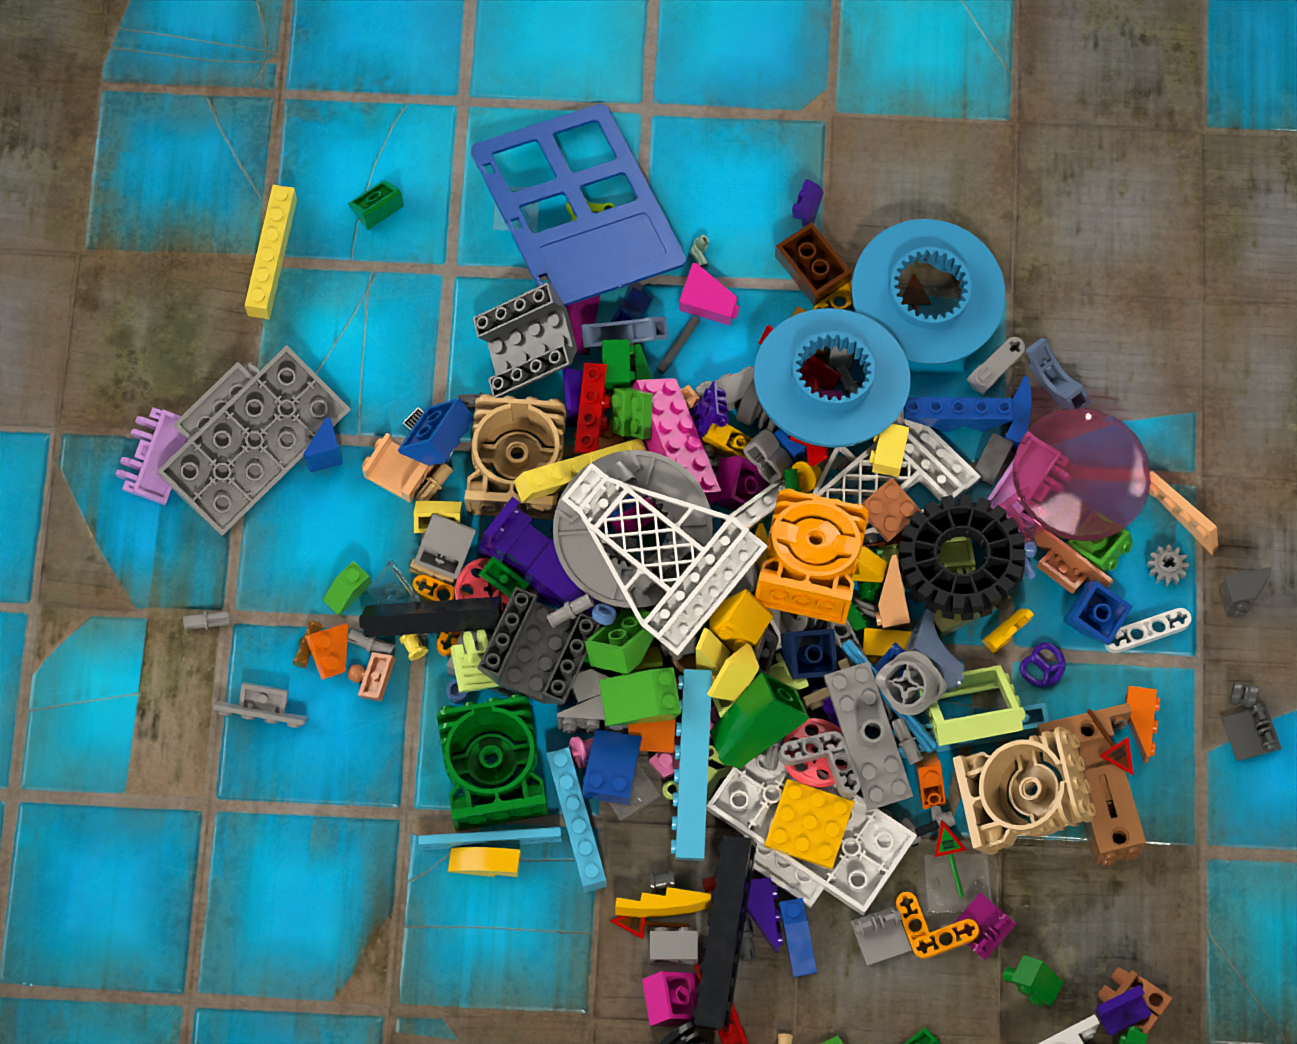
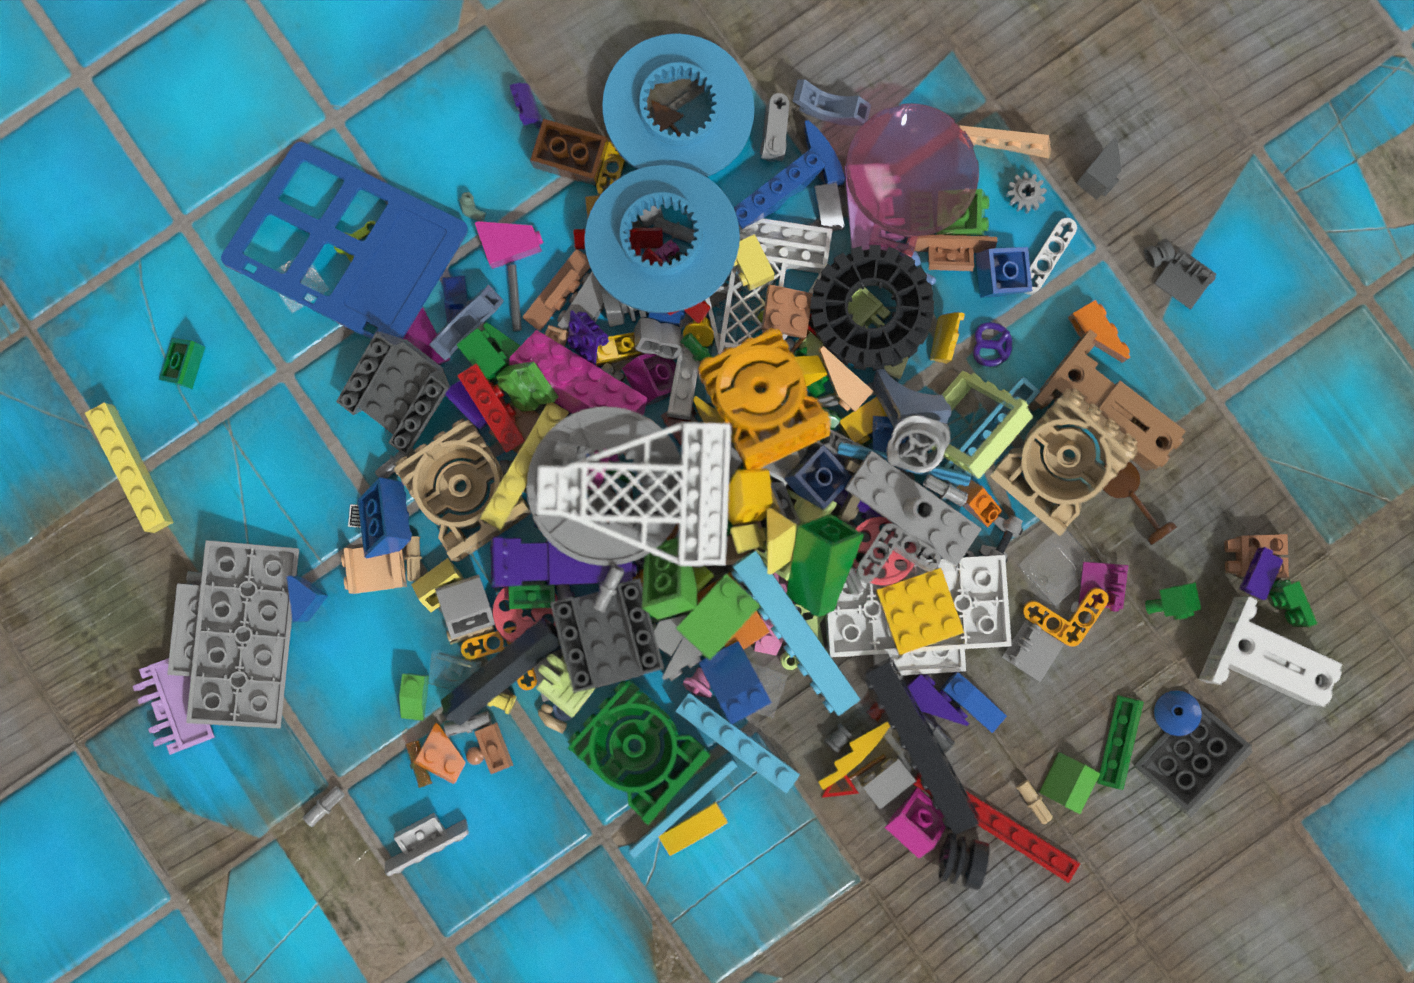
camera: 35 degrees left, 15 degrees up
(438, 689) = (549, 720): none -> tan arm
(604, 614) = (637, 571): medium blue tile -> none
(716, 364) = (556, 292): none -> nougat bracket
(948, 844) = (1031, 544): piece -> none
(1067, 855) = (1125, 485): none -> reddish brown piece
(1118, 754) = (1114, 377): piece -> none

